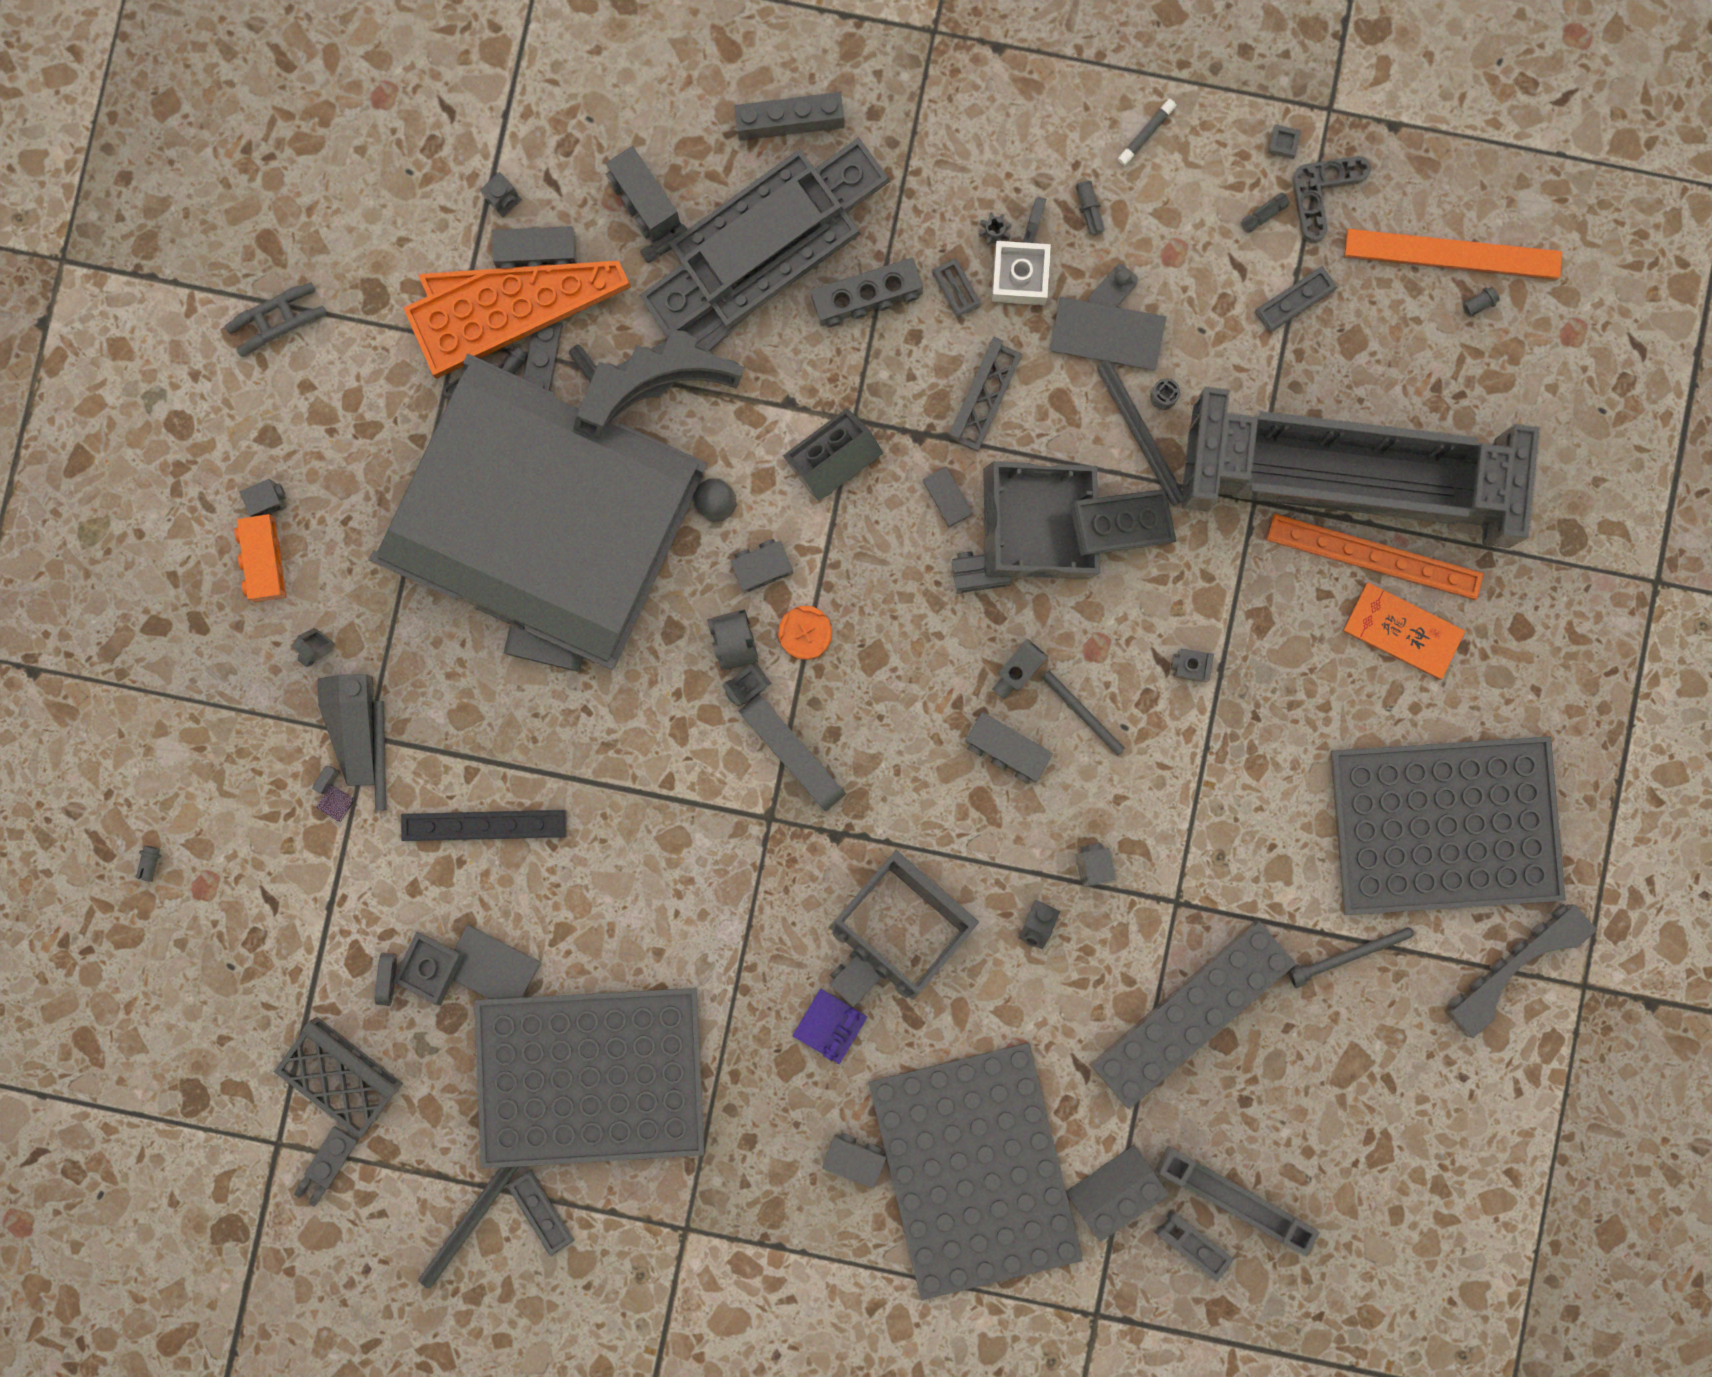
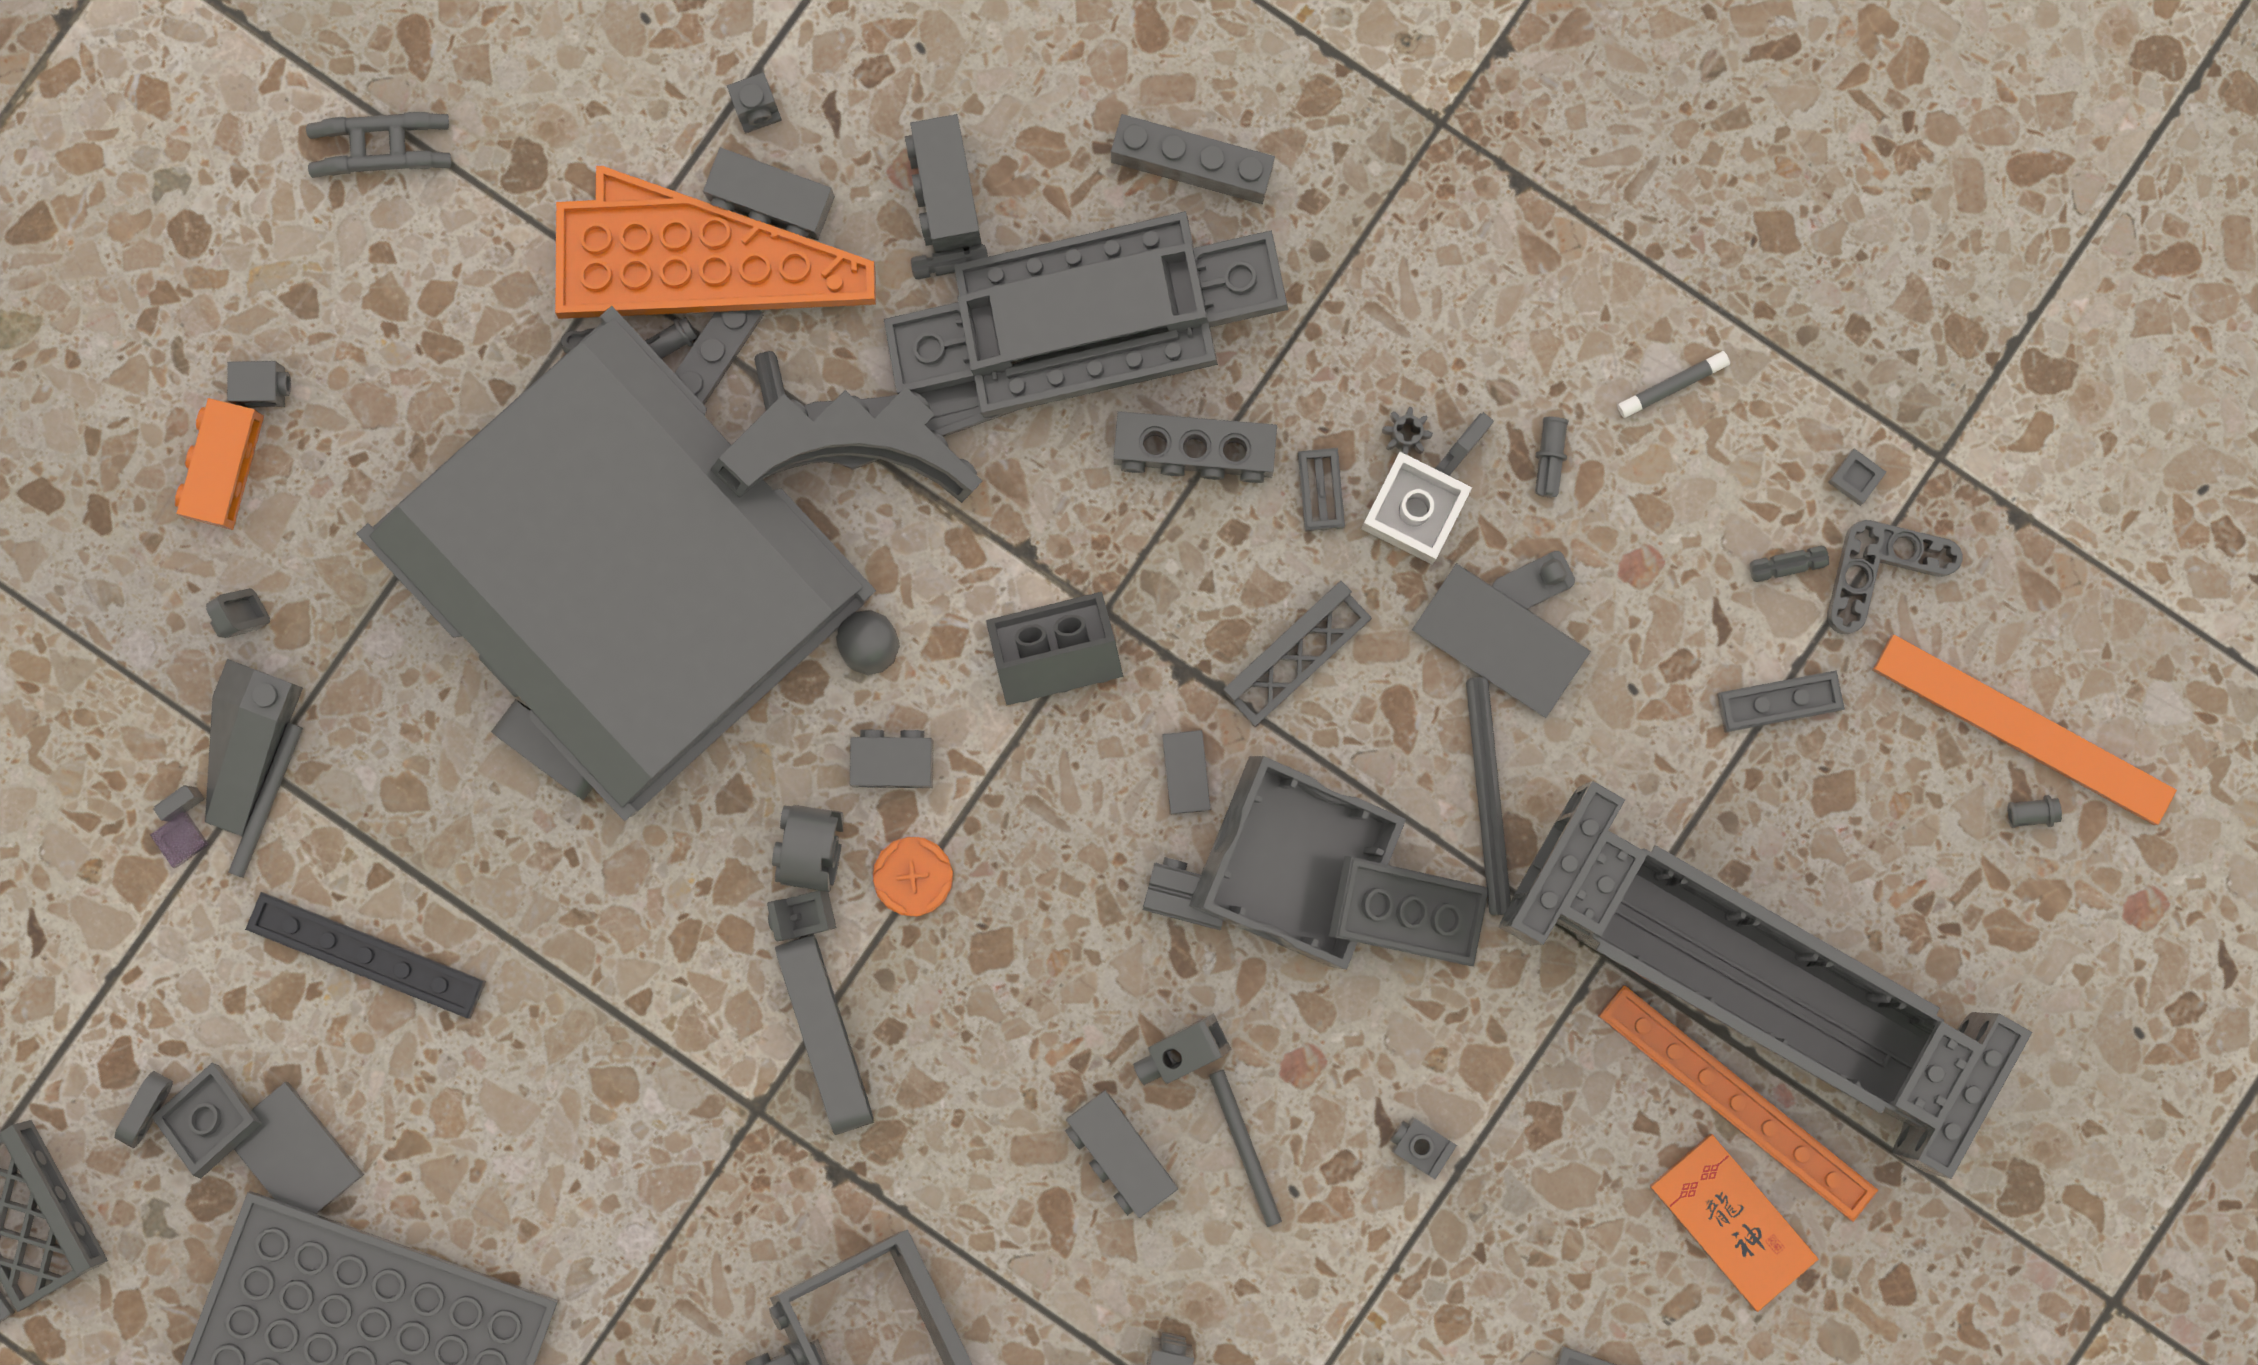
camera: 20 degrees right, 0 degrees up
(1164, 399) = (1538, 760): dark grey wheel -> none

